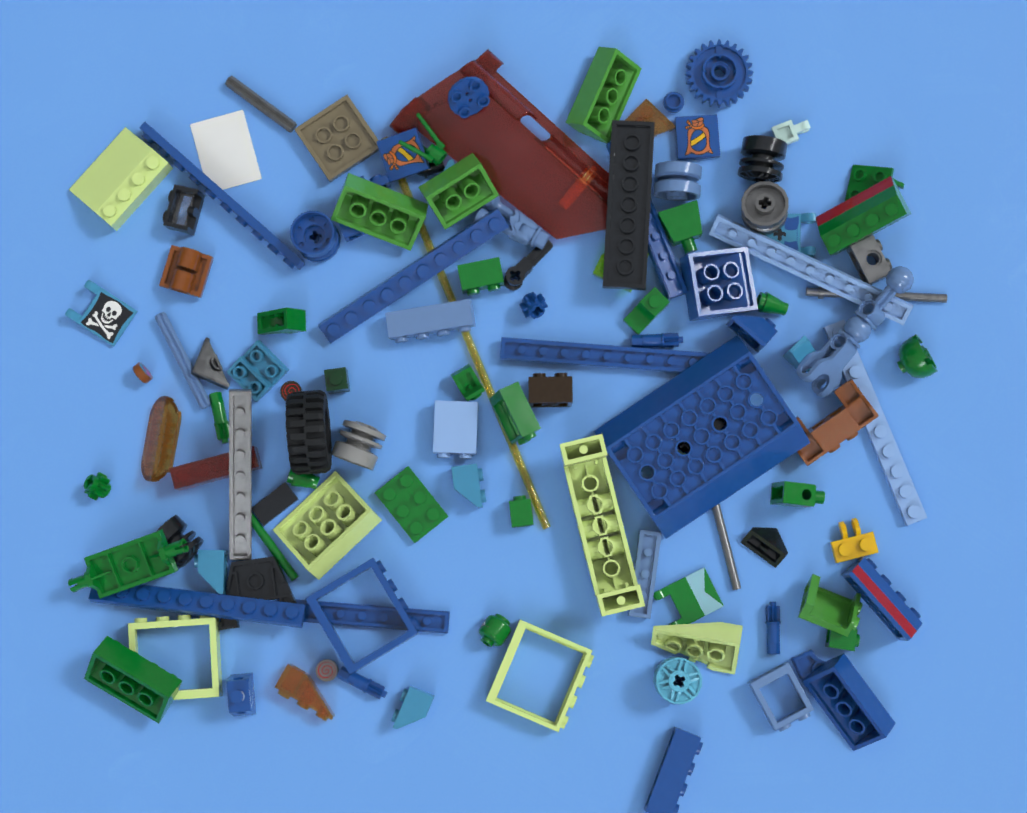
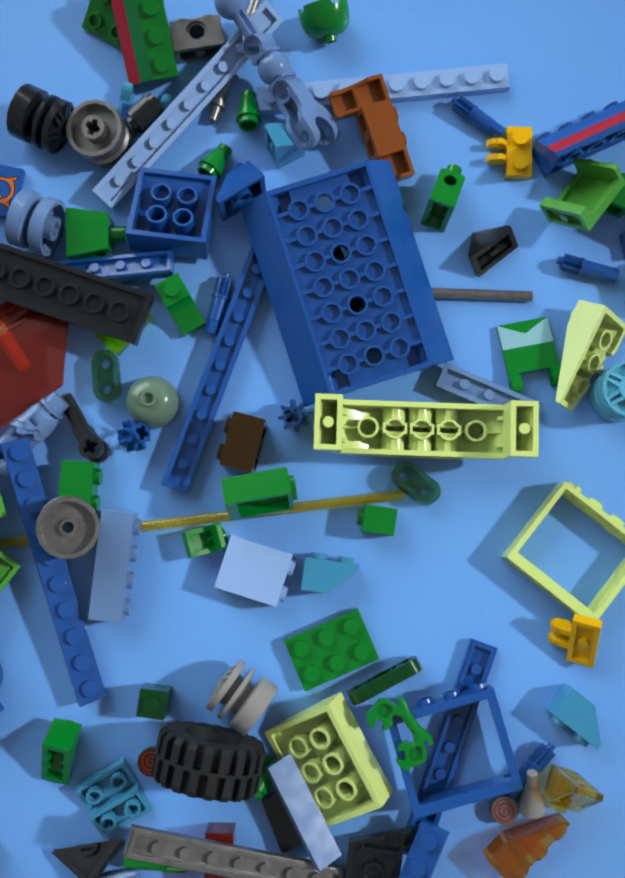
camera: 80 degrees left, 0 degrees up
(273, 549) = (344, 834): green bar -> none
(286, 515) = (303, 811): none -> medium blue tile
(339, 688) = (531, 801): none -> light grey cone
(354, 584) = (414, 751): none -> green helmet
(355, 712) = (569, 790): none -> clear yellow slope
(399, 551) = (384, 680): none -> dark green beam
(445, 290) = (67, 544): none -> flat silver wheel
(473, 693) = (579, 638): none -> yellow hinge
(494, 630) = (509, 590): green head -> none
(558, 535) = (416, 482): none -> clear green plate
(564, 312) = (152, 402): none -> sand green cylinder
(573, 270) = (106, 377): none -> clear green plate
(582, 419) = (287, 416): none -> blue gear
(789, 132) = (19, 78): light aqua plate -> none
(792, 237) = (144, 112): none -> black brick
(821, 318) = (248, 114): none -> green cone
(873, 505) = (477, 117): none -> blue piece

